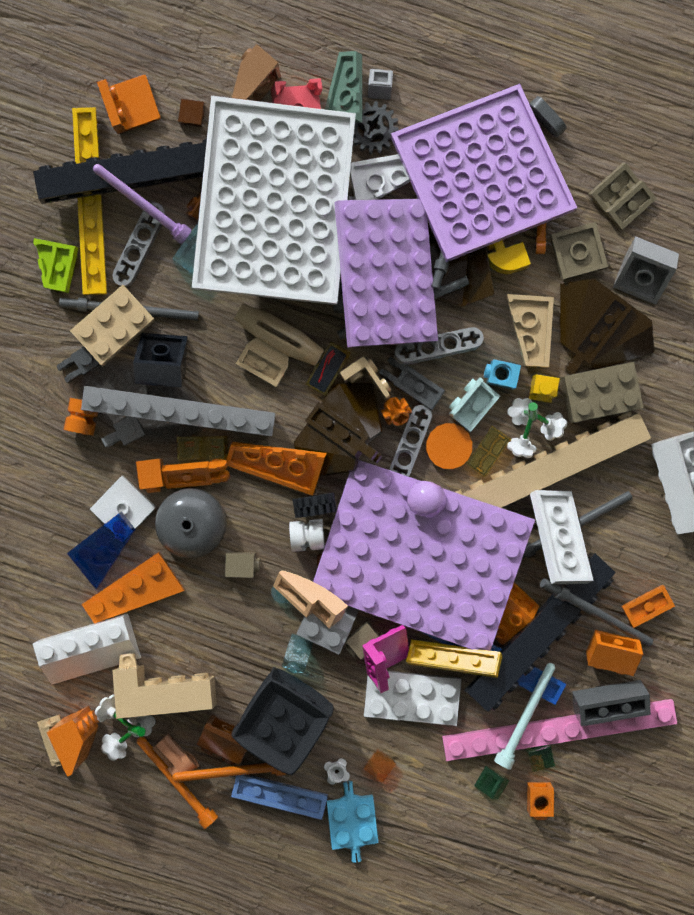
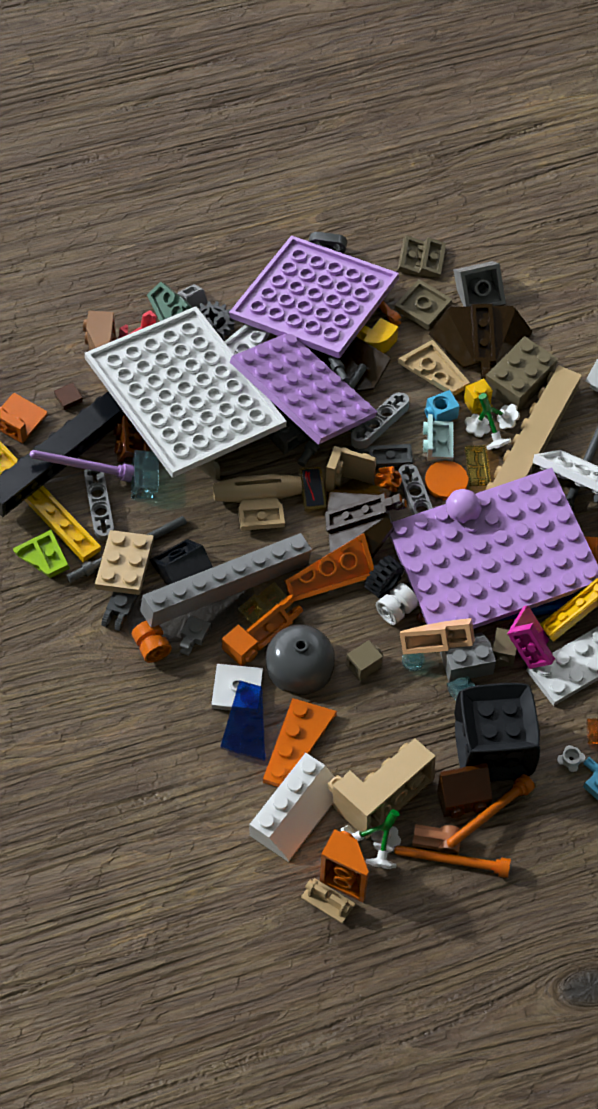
camera: 40 degrees left, 30 degrees down
(279, 795) = (543, 807): medium blue plate -> none

